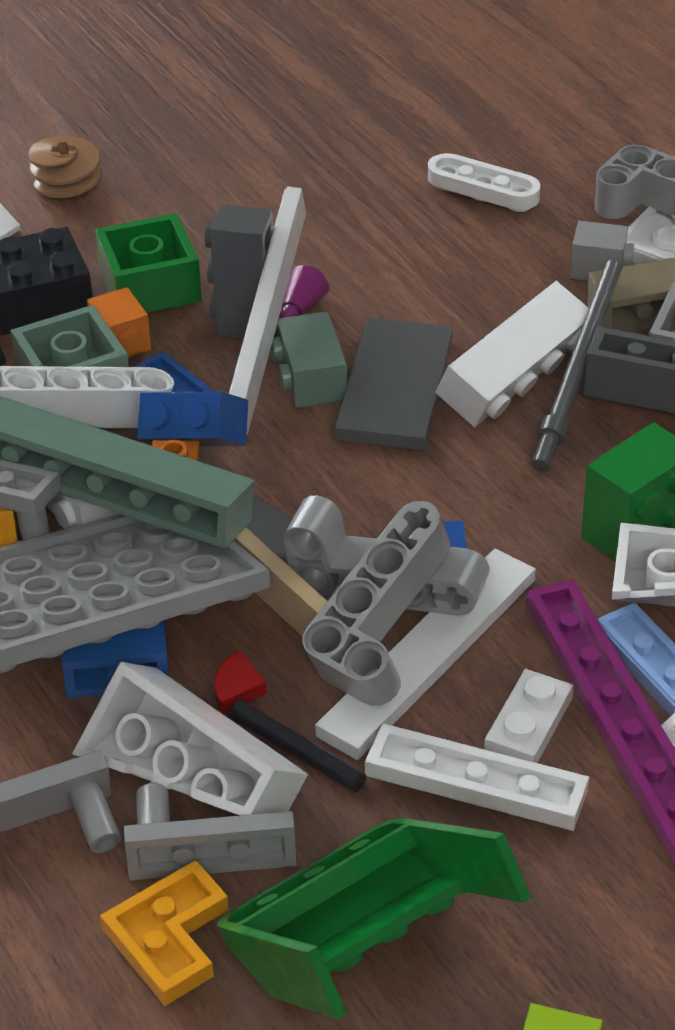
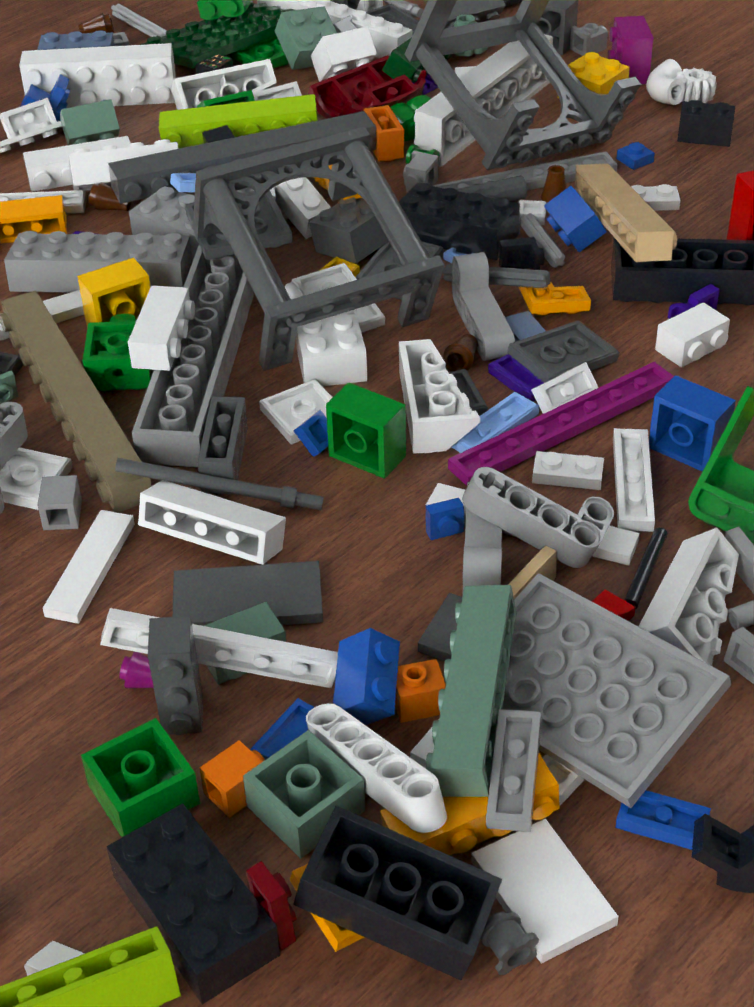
camera: 105 degrees left, 0 degrees up
(485, 271) = (88, 567): none -> white tile
(561, 845) = (688, 421): none -> blue brick

